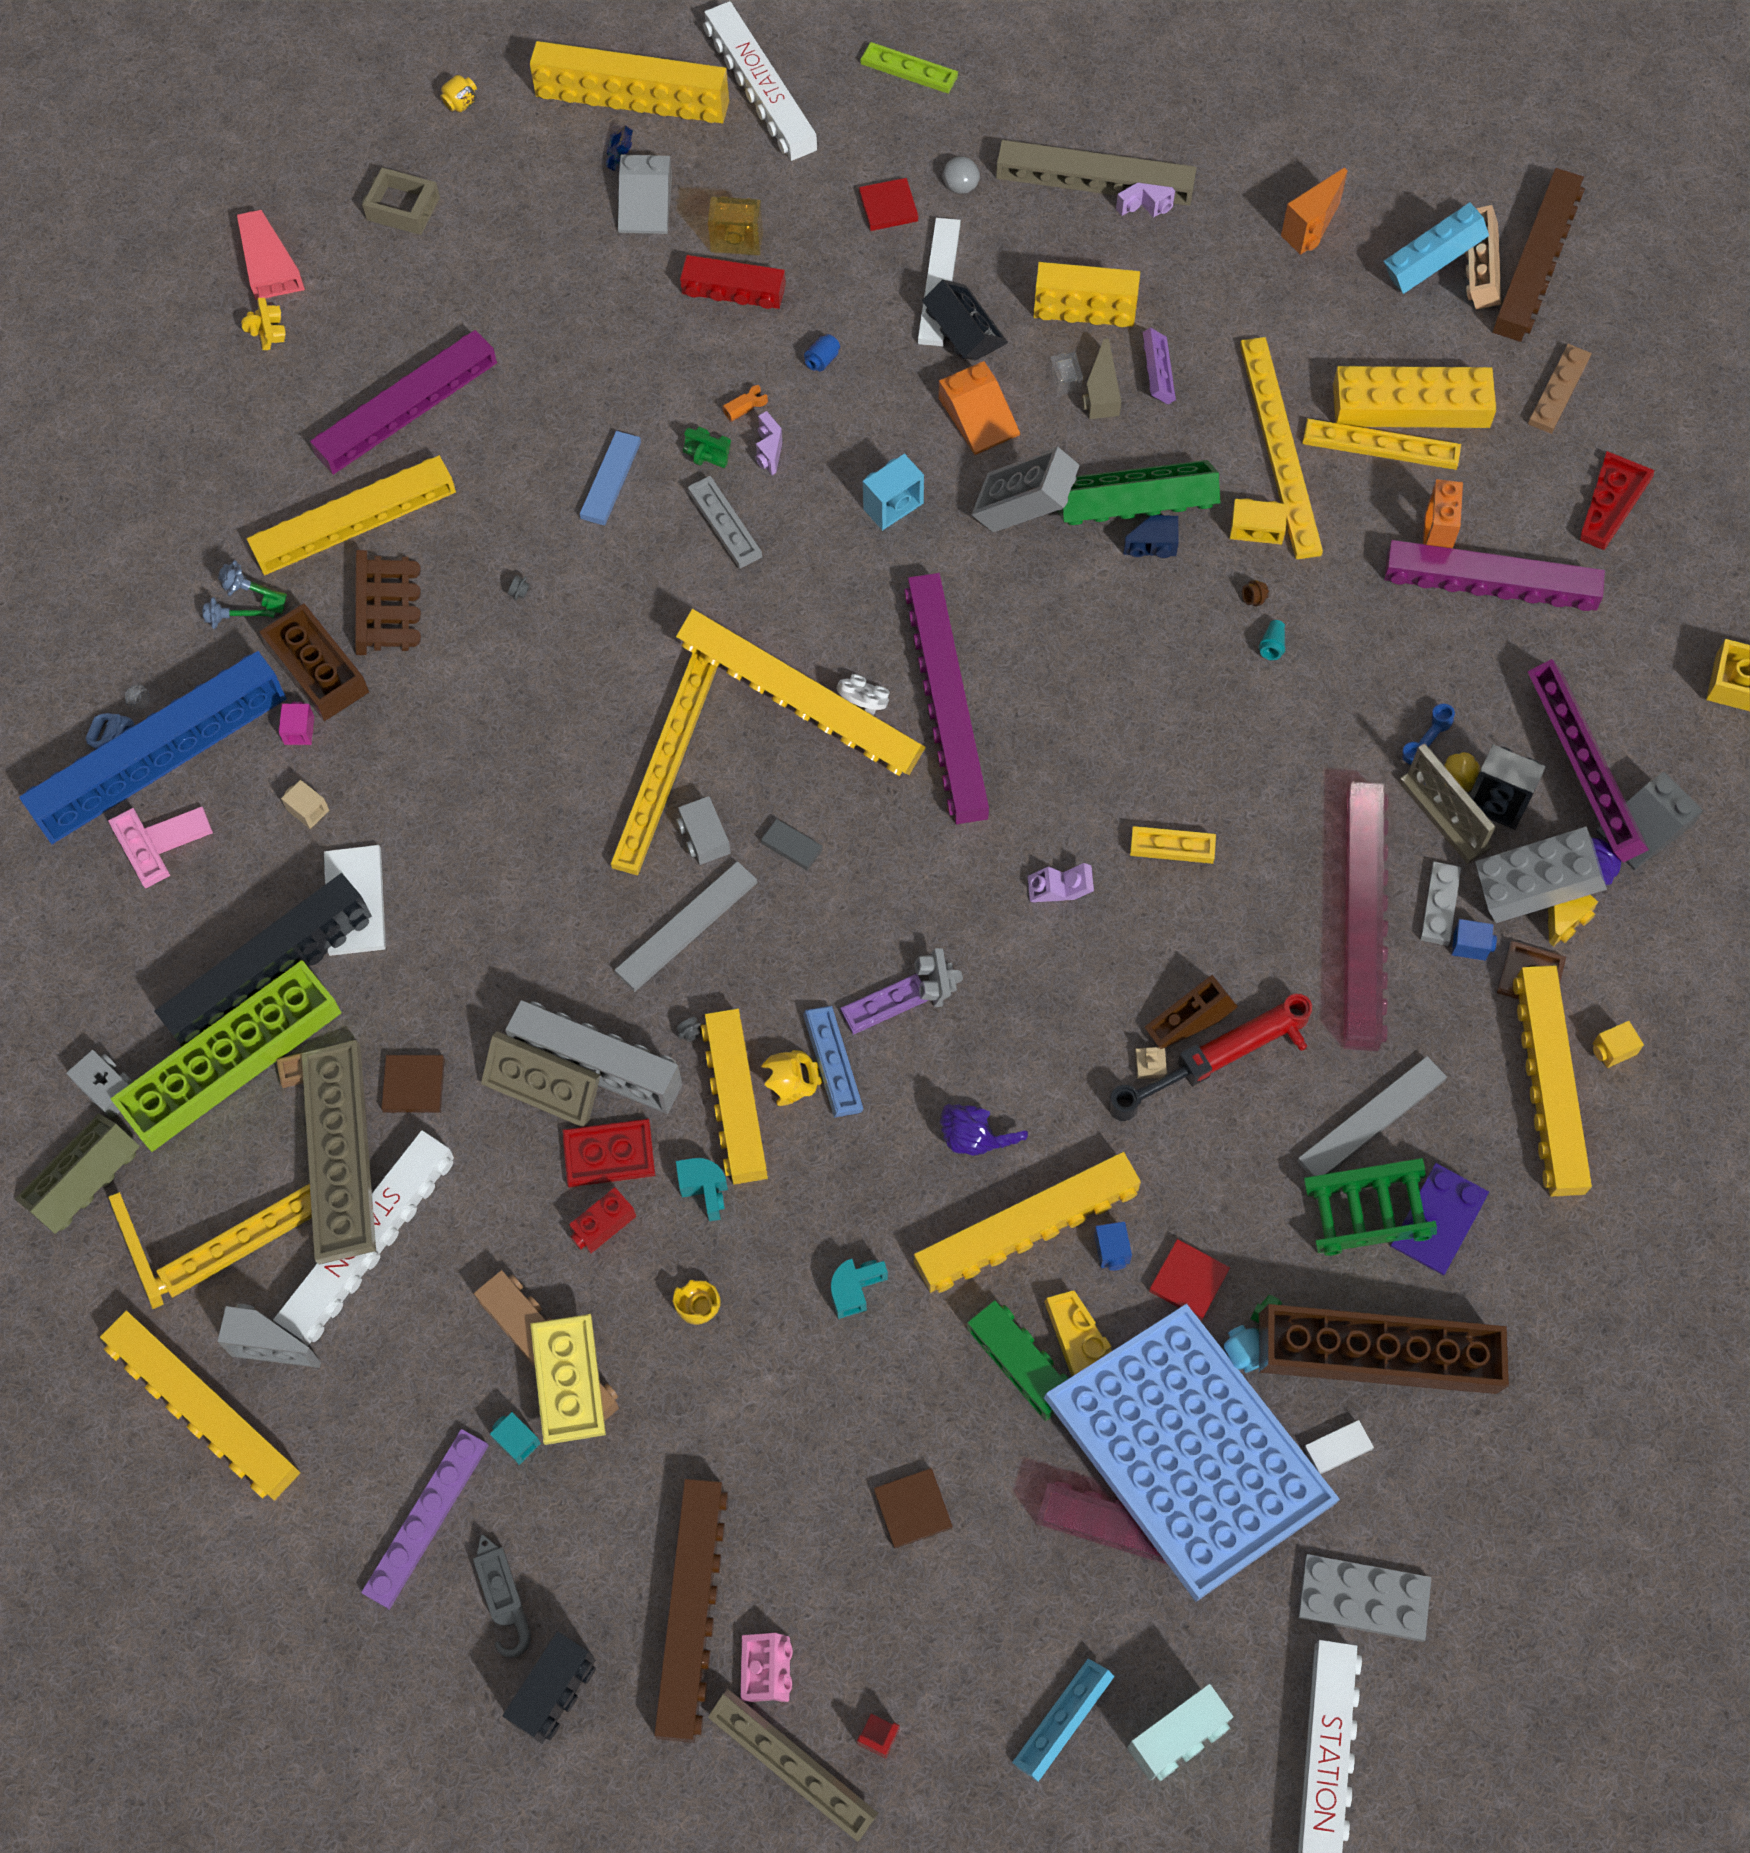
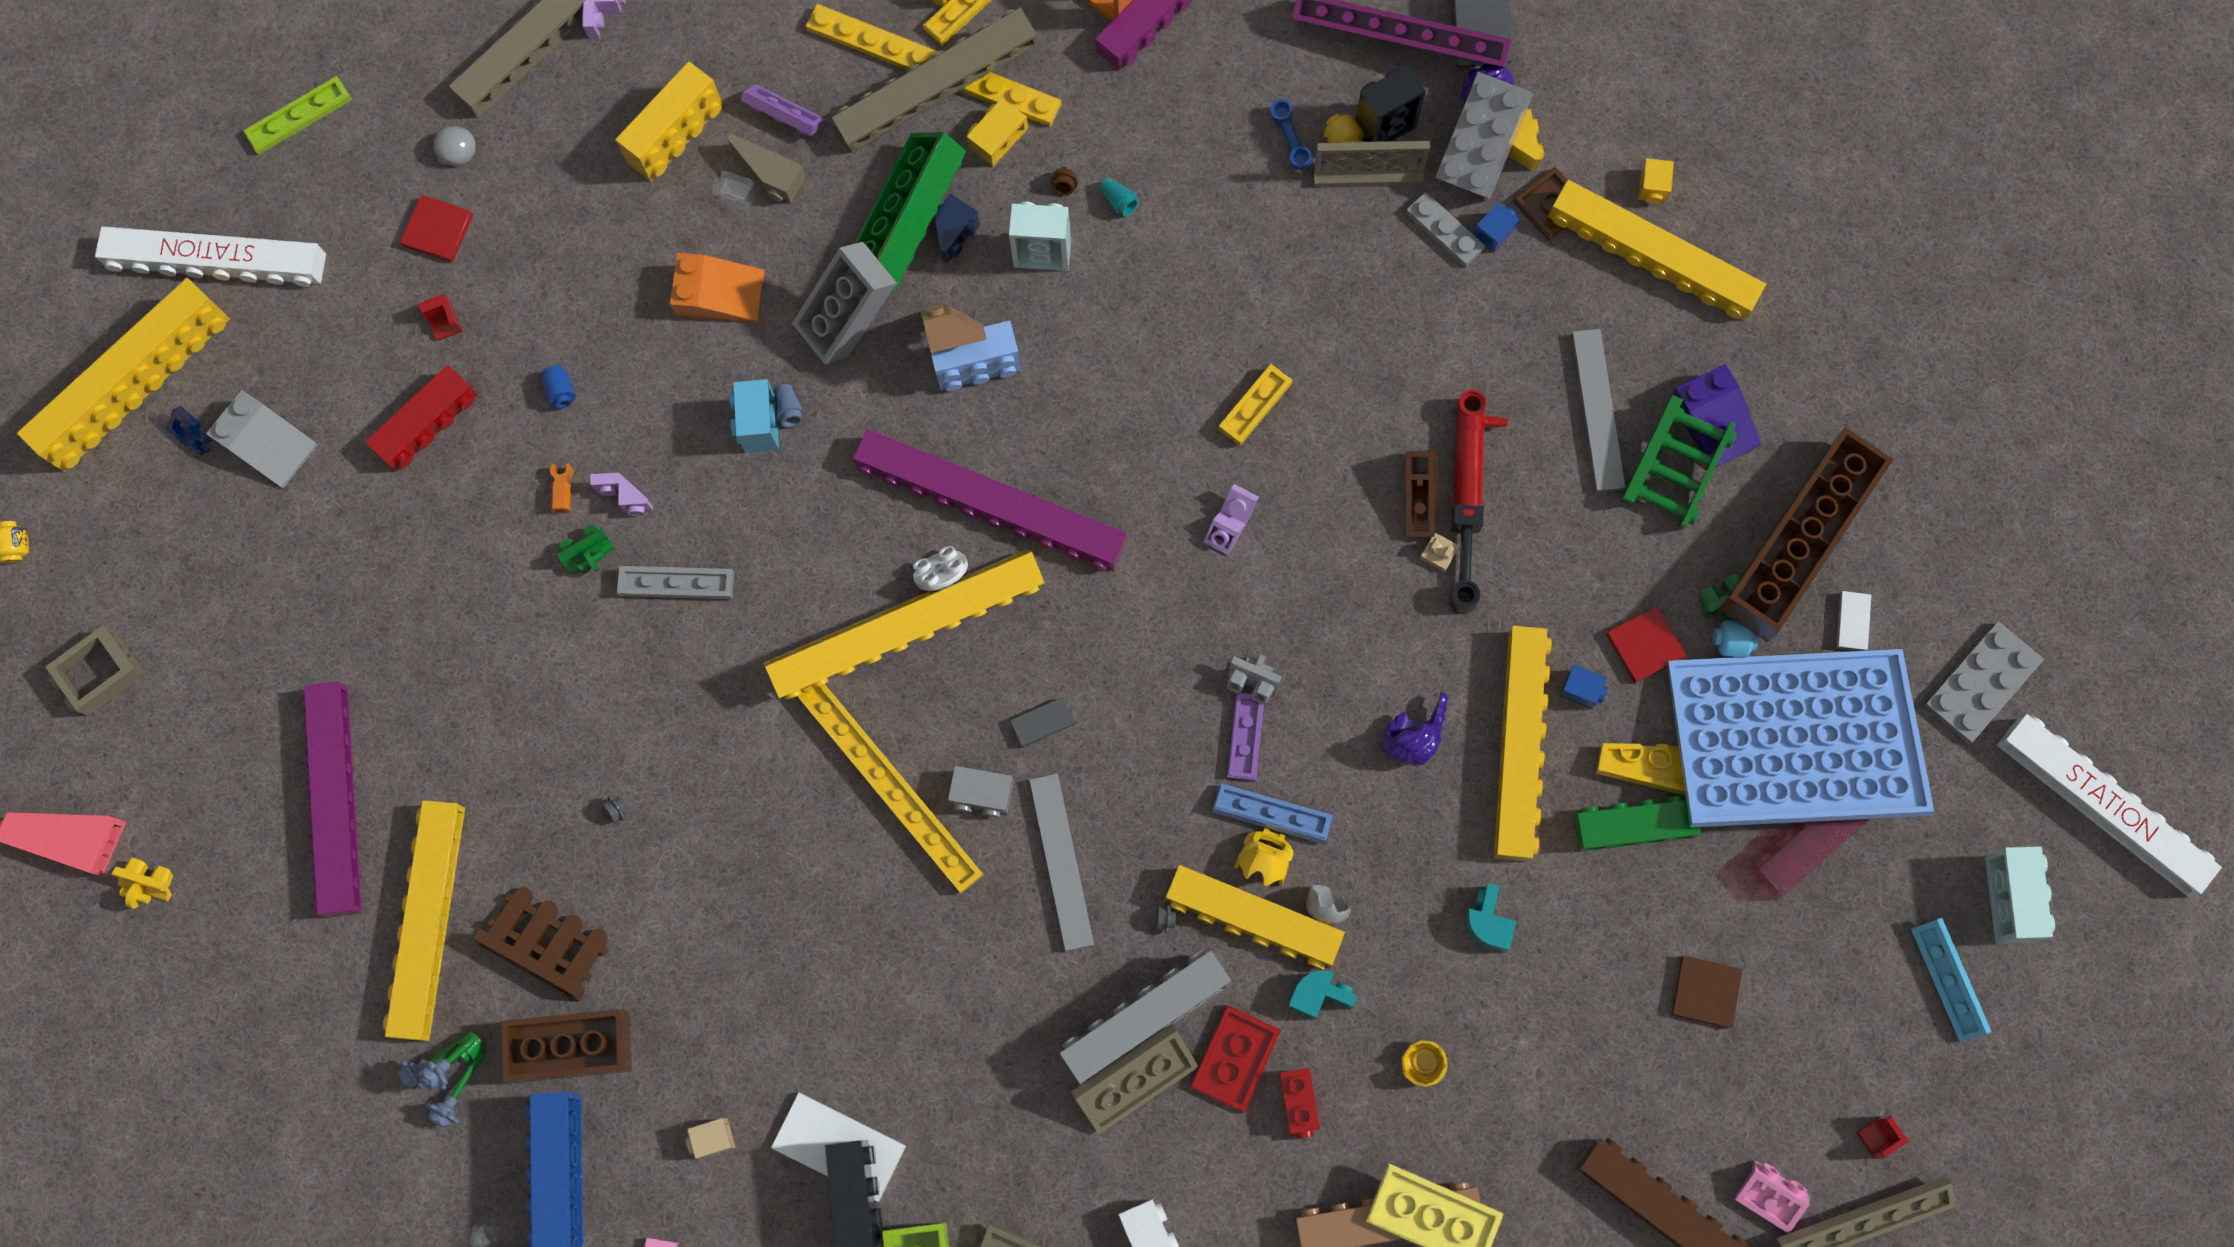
camera: 55 degrees left, 10 degrees up
(296, 724) = (618, 1099): dark pink brick -> none
(413, 1084) = (1059, 1195): reddish brown tile -> none
(610, 478) = (553, 656): medium blue tile -> none
(735, 225) = (365, 377): clear yellow brick -> none
(780, 1143) = (1324, 908): none -> light grey hair
(823, 248) = (441, 316): none -> red panel
(918, 514) = (788, 407): none -> sand blue cone
(940, 267) = (554, 237): white tile -> none
(963, 320) = (617, 243): black slope -> none
(1056, 612) = (978, 360): none -> light blue brick
(1057, 566) = (950, 328): none -> medium nougat wedge
(1188, 595) = (1040, 236): none -> light aqua brick
(1266, 450) = (936, 79): none -> dark tan brick
(1364, 917) = (1420, 295): clear pink brick -> none

